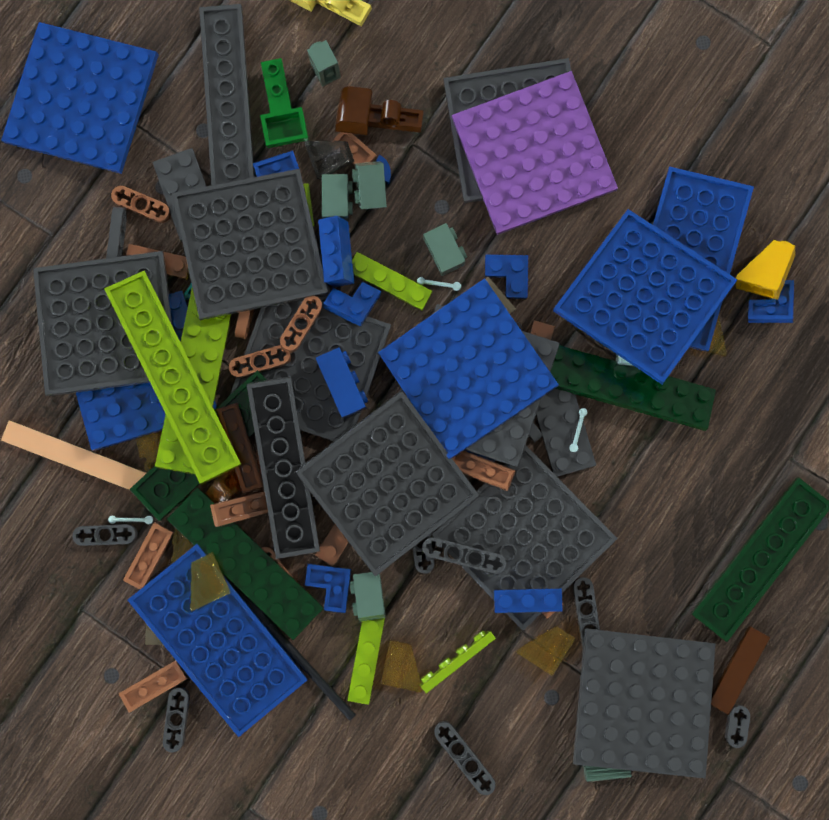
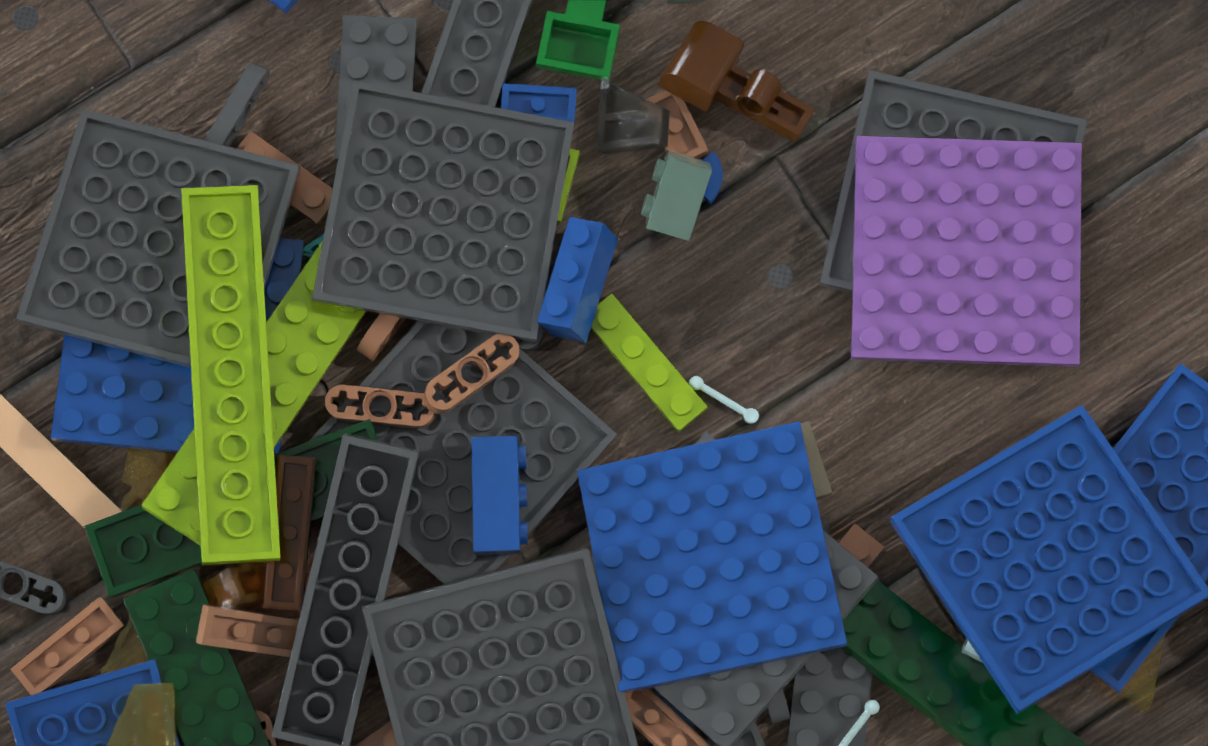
camera: 20 degrees right, 5 degrees down
(125, 204) = (271, 63): nougat beam -> none
(148, 520) = (92, 589): light aqua hinge -> none
(336, 196) = (615, 190): sand green brick -> none
(353, 308) = (569, 383): blue plate -> none
(444, 249) = (755, 347): sand green brick -> none
(512, 268) = (856, 426): blue plate -> none

